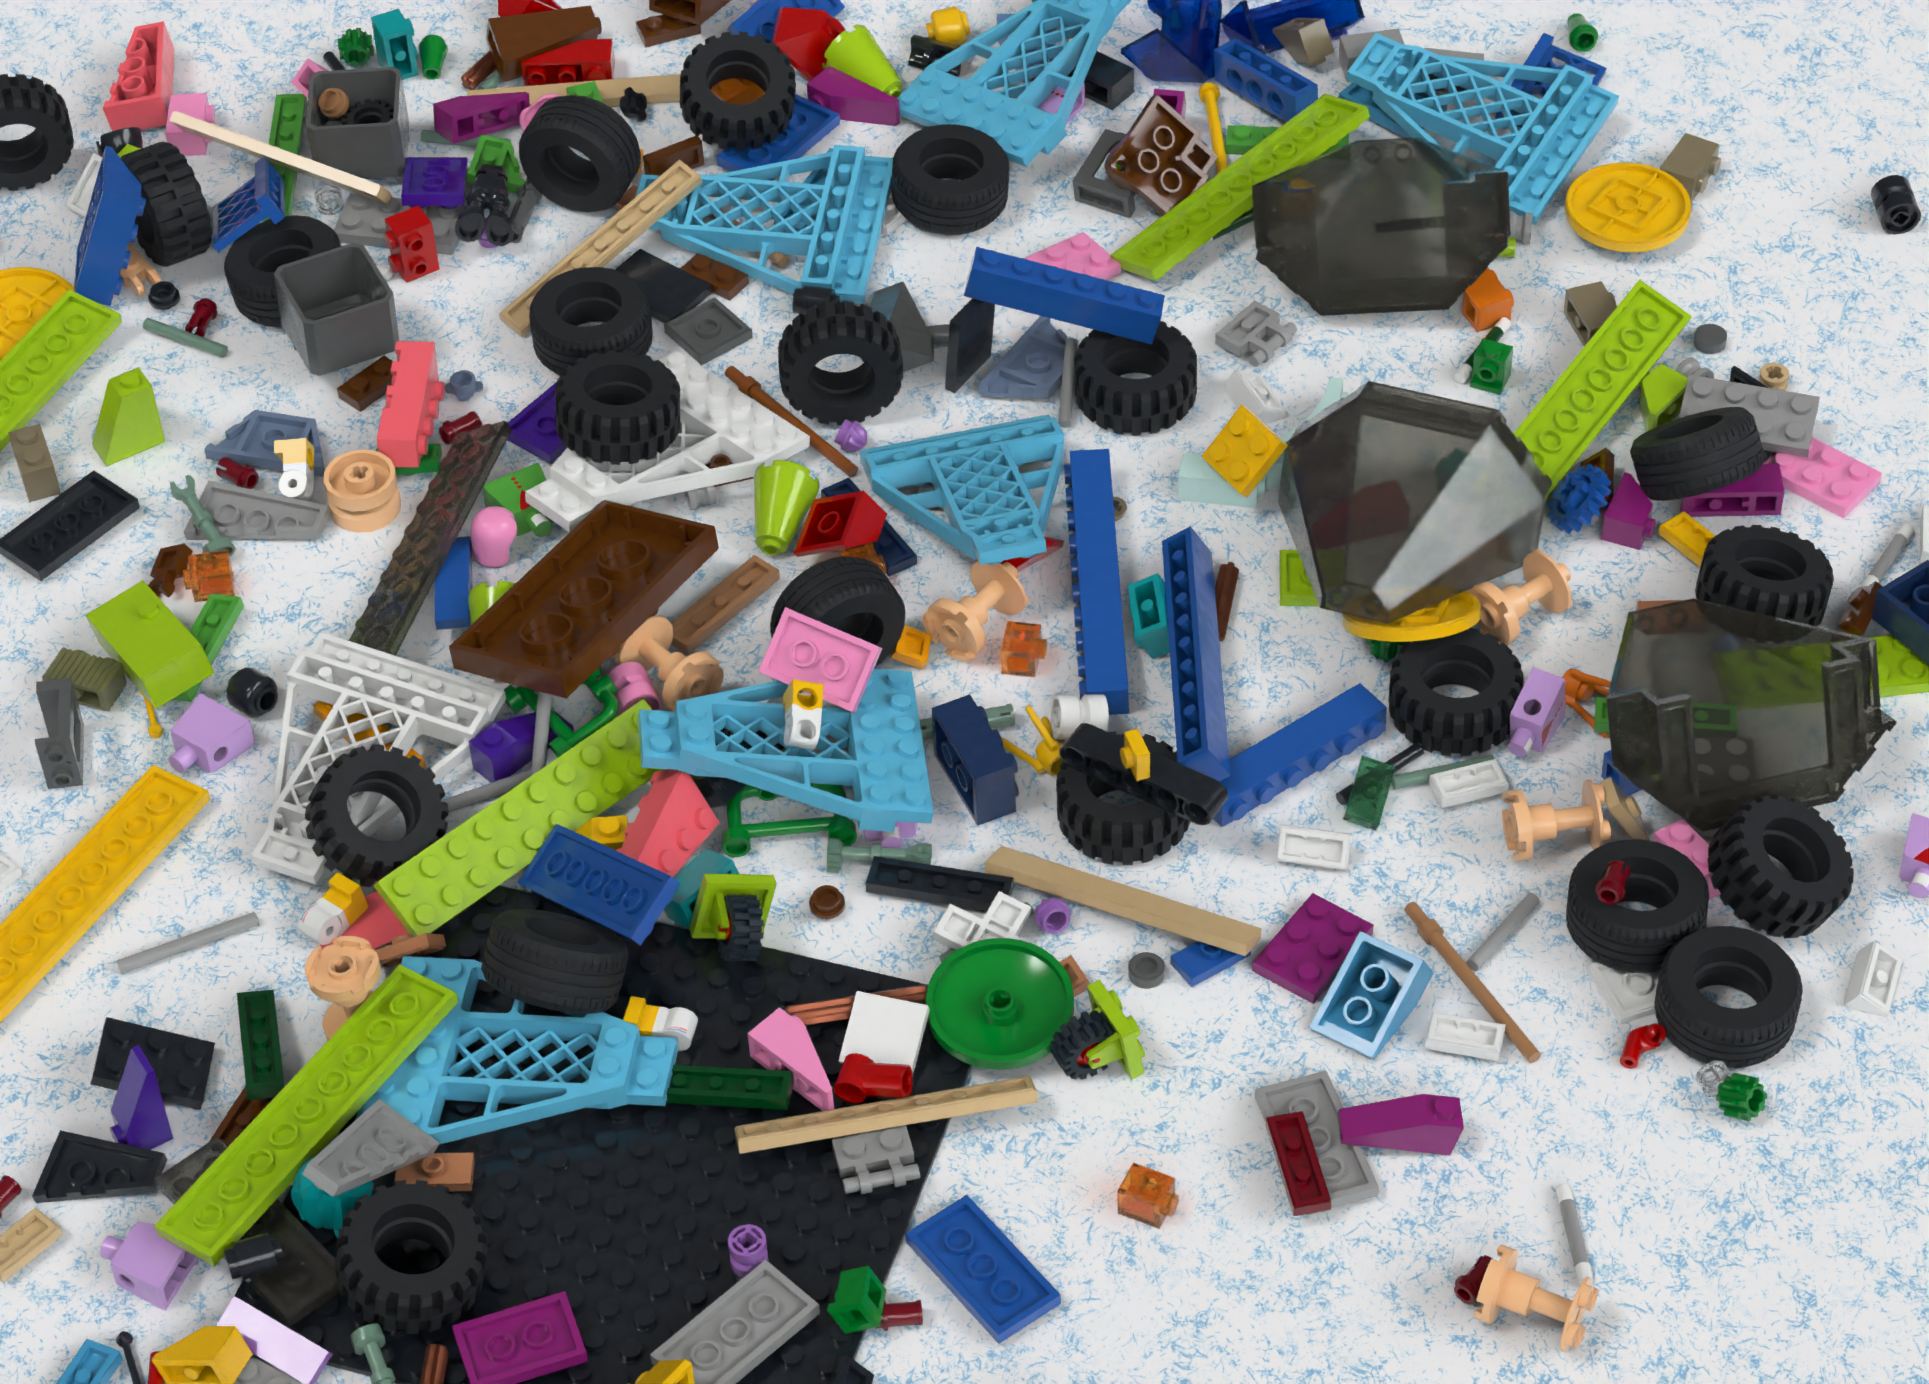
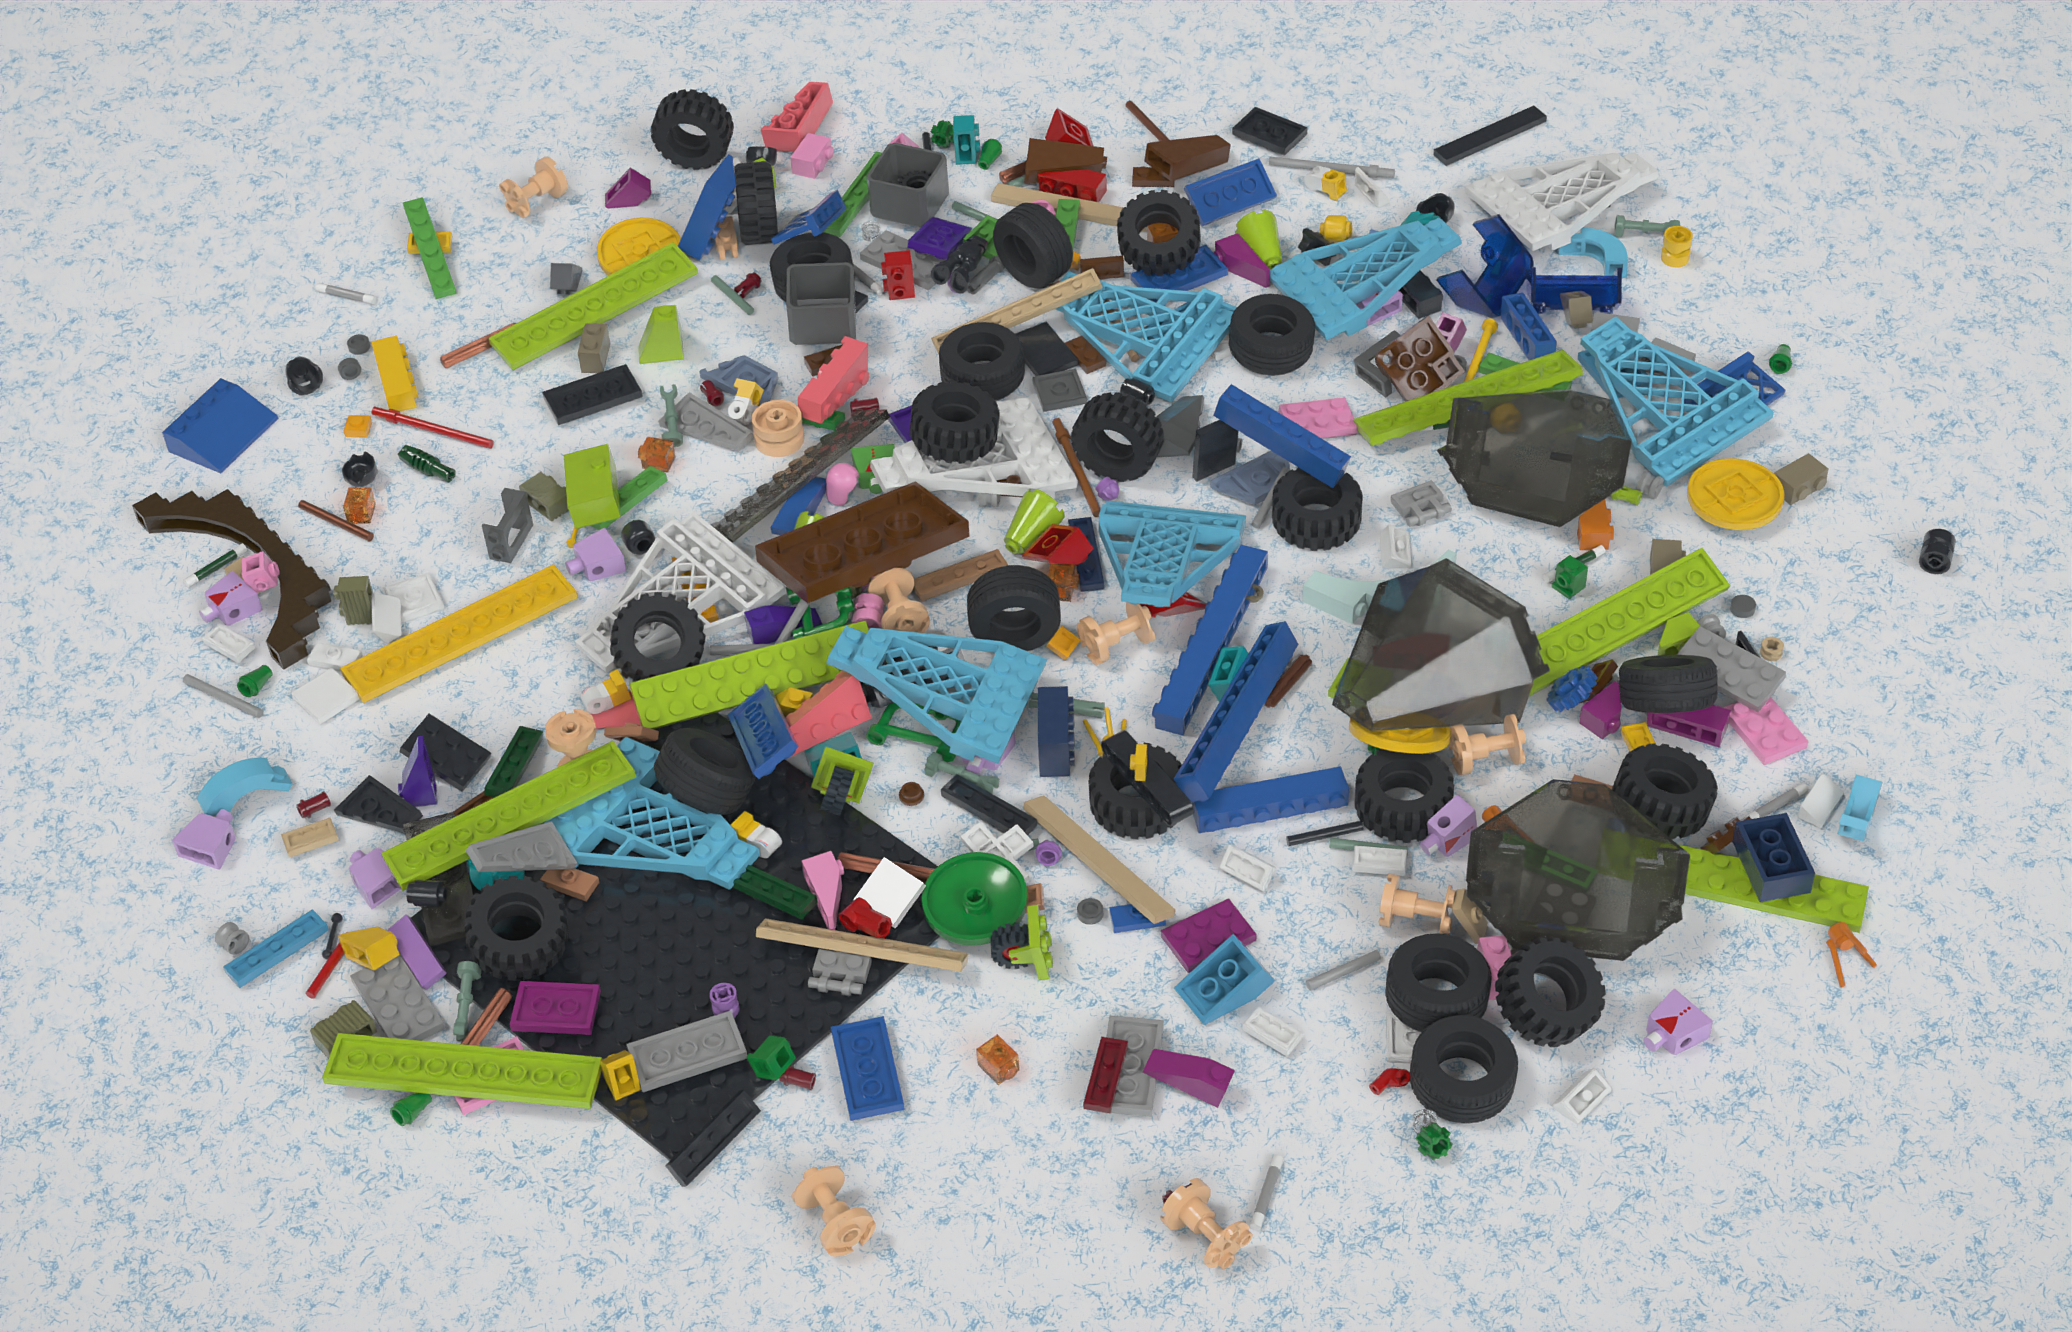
camera: 25 degrees right, 0 degrees up
(163, 295) = (734, 263): black plate -> none
(168, 567) = (633, 442): reddish brown plate -> none
(188, 942) = (513, 684): light grey bar -> none
(281, 157) = (851, 195): tile -> none
(333, 102) = (899, 166): medium nougat plate -> none
(463, 385) = (883, 379): sand blue plate -> none
(474, 115) = (991, 201): magenta slope -> none
(633, 104) = (1094, 225): black plate -> none
(803, 714) = (947, 663): leg -> none
(805, 37) = (1229, 207): red slope -> none
(821, 655) = (978, 630): bright pink plate -> none
(1022, 649) = (1133, 668): clear orange brick -> none
(1070, 712) = (1142, 726): white wheel -> none
(1244, 450) = (1350, 581): yellow plate -> none
(1369, 793) = (1306, 843): clear green plate -> none
(1433, 934) = (1293, 955): medium nougat bar -> none
(1611, 888) = (1413, 964): dark red pin -> none

